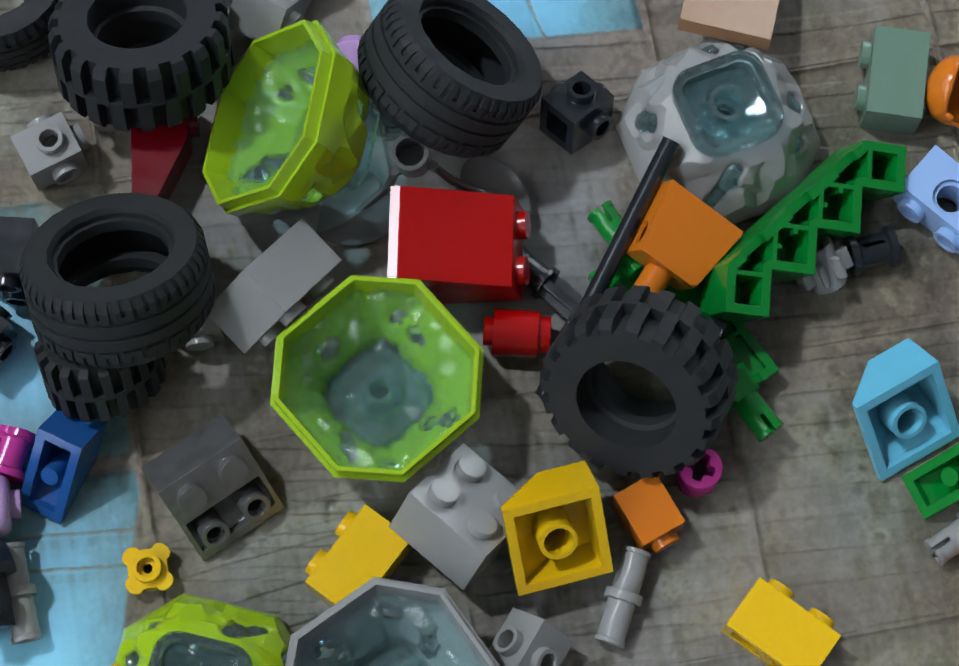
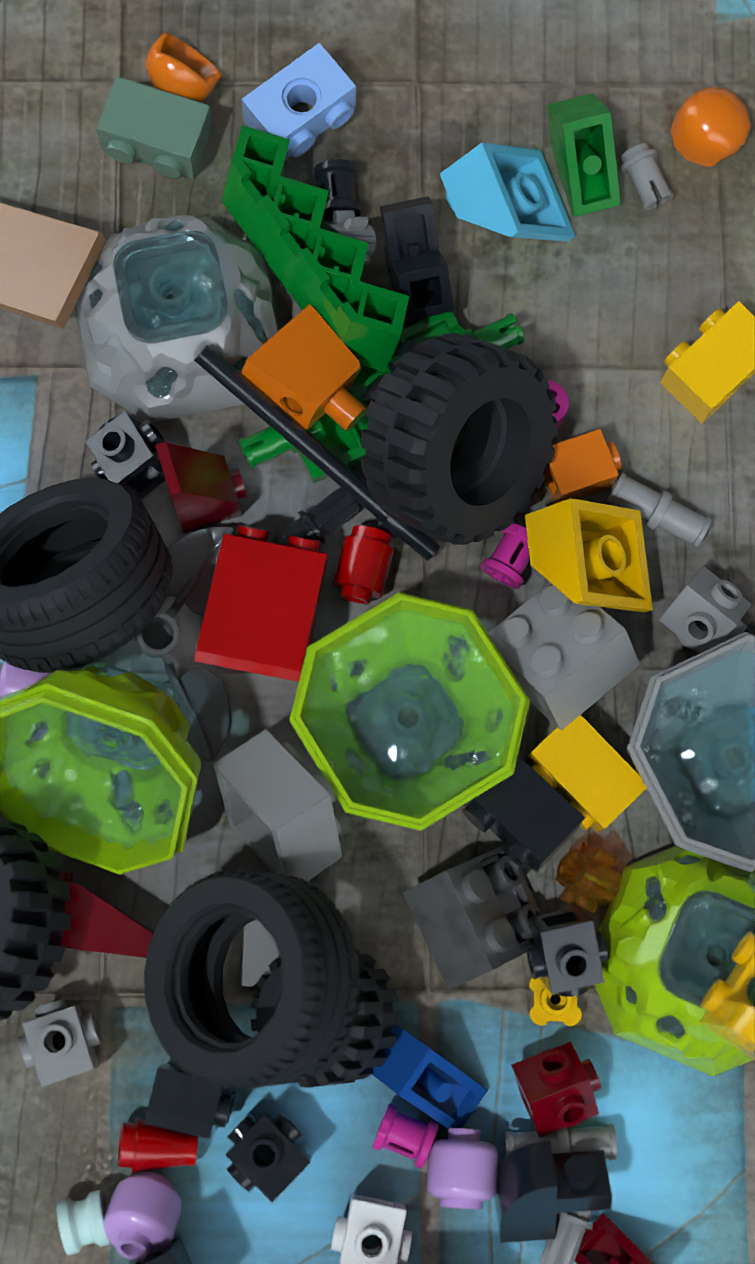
camera: 85 degrees left, 5 degrees up
(65, 577) = (557, 1088): none -> dark red brick
(186, 561) = (566, 952): none -> black brick
(260, 579) = (588, 877): none -> clear orange gear
(310, 510) = (525, 816): none -> black brick
(545, 453) = (509, 557): none -> dark pink bush
(556, 168) = (200, 486): none -> dark red slope
(816, 331) = (415, 258): none -> black brick

